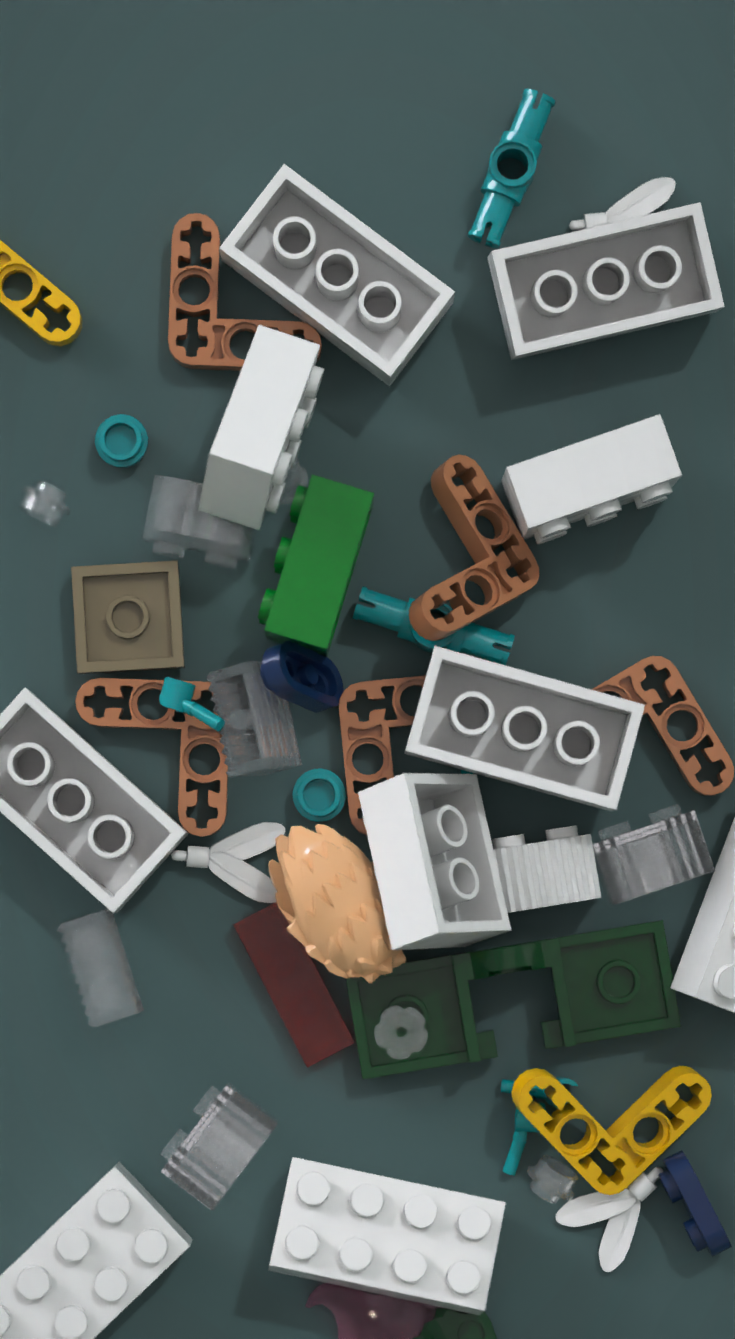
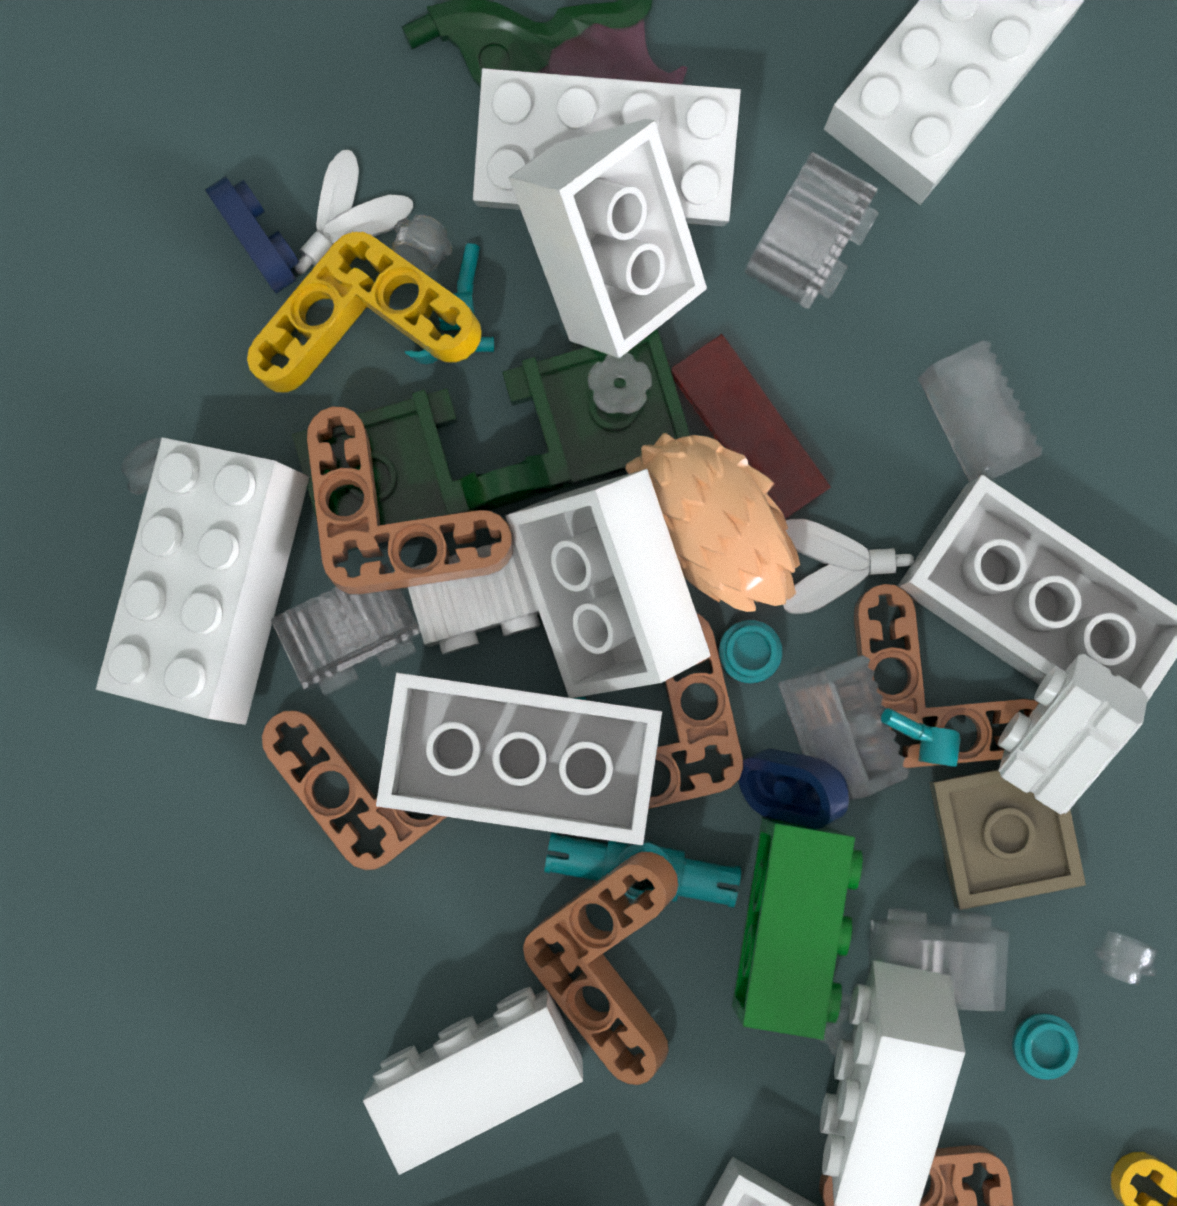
camera: 175 degrees right, 0 degrees up
(73, 690) = (1071, 733): none -> white brick
(394, 1153) = (610, 235): none -> white slope
(628, 936) = (364, 530): none -> nougat beam

